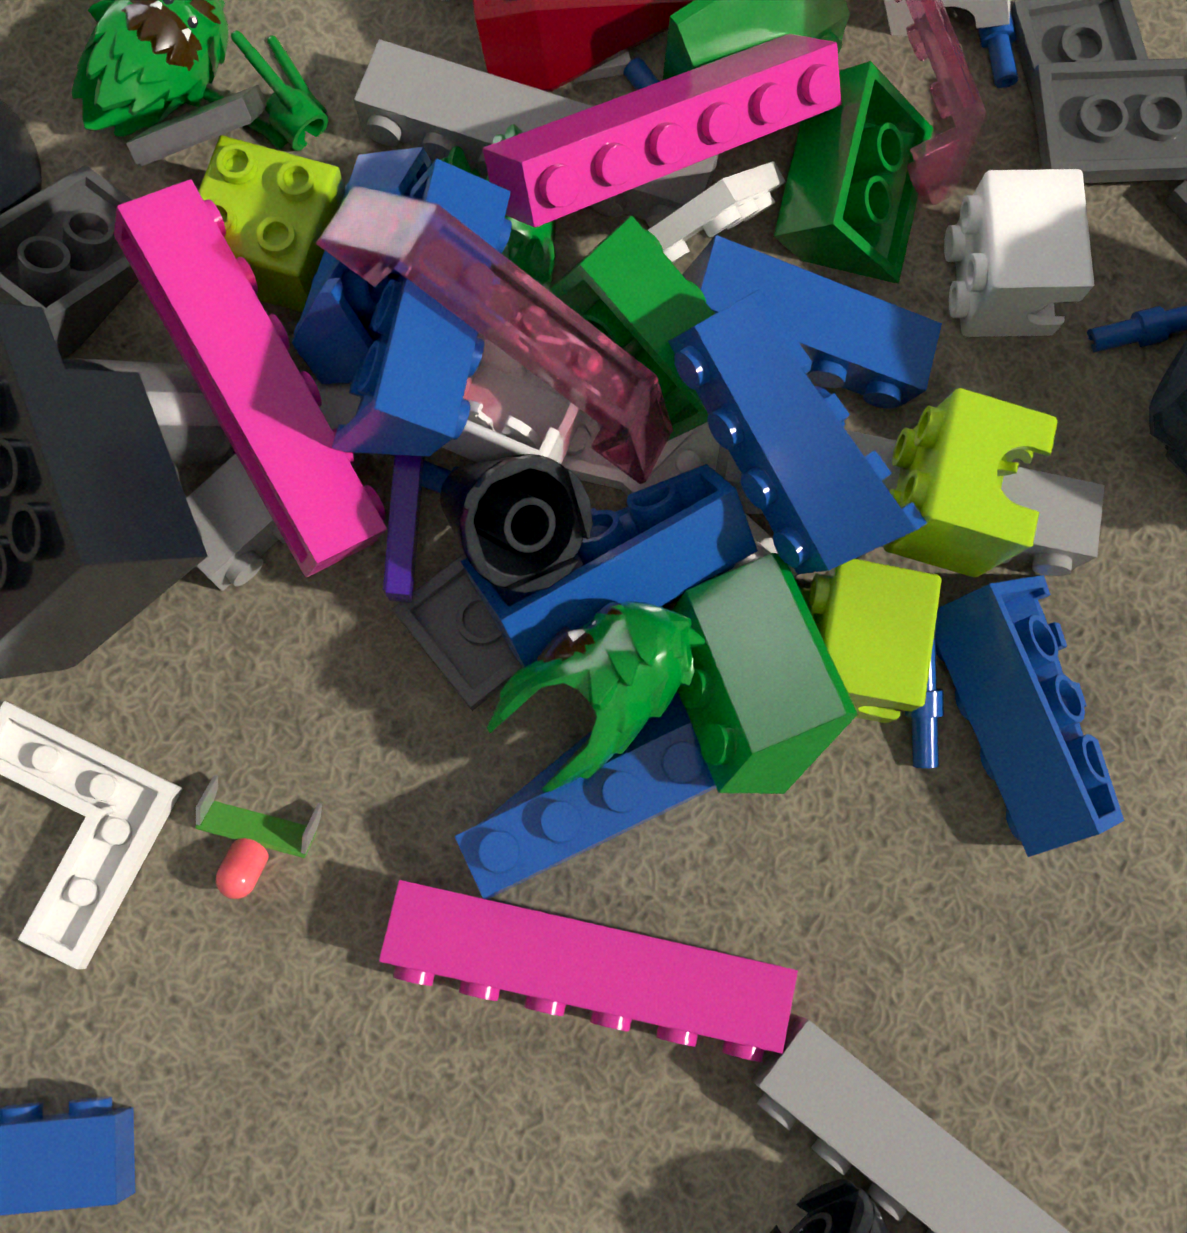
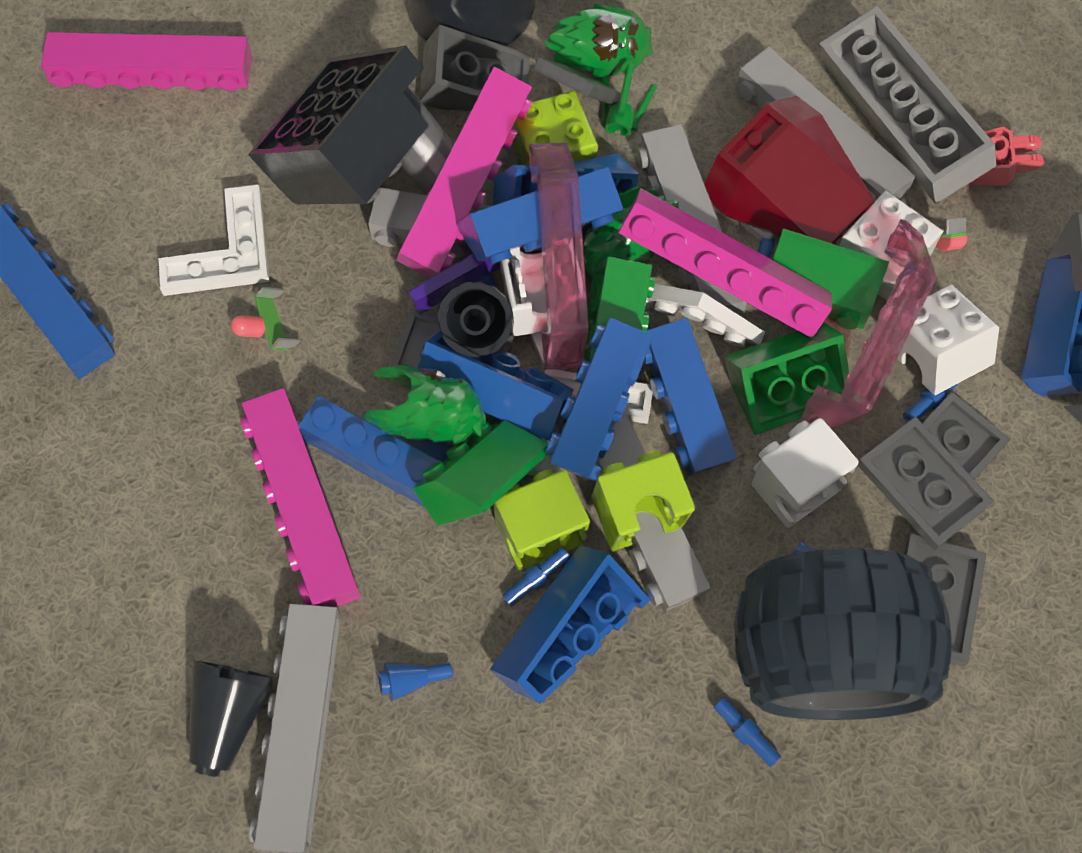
camera: 60 degrees right, 10 degrees down
(958, 984) = (402, 678): none -> blue cone

